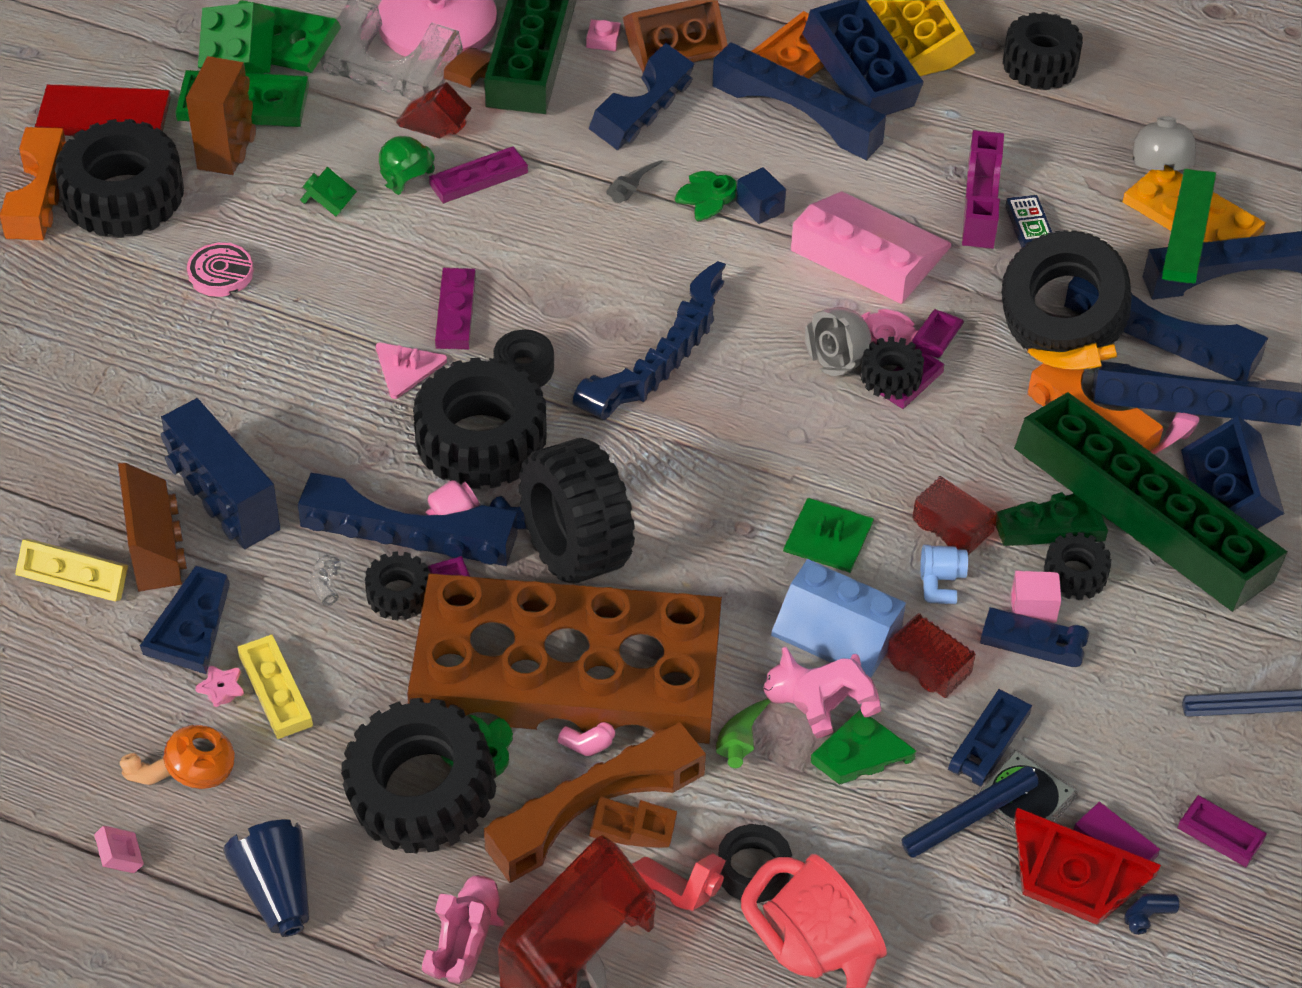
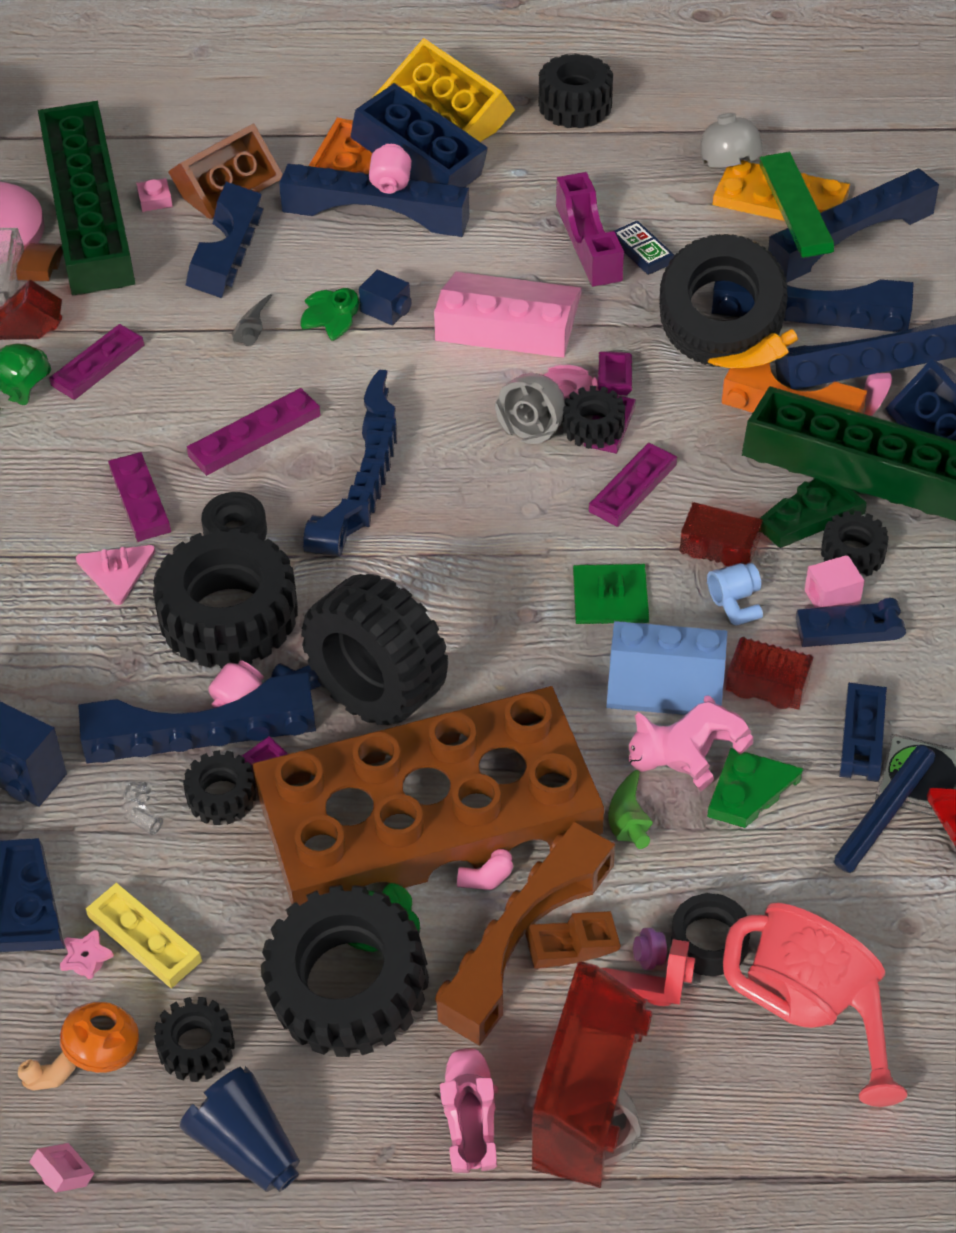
camera: 20 degrees left, 0 degrees up
(270, 769) = (196, 1060): none -> black tyre
(584, 282) = (253, 431): none -> magenta plate
(692, 853) = (650, 948): none -> medium lavender plate
(815, 75) = (390, 168): none -> bright pink head
(901, 442) = (632, 484): none -> magenta tile

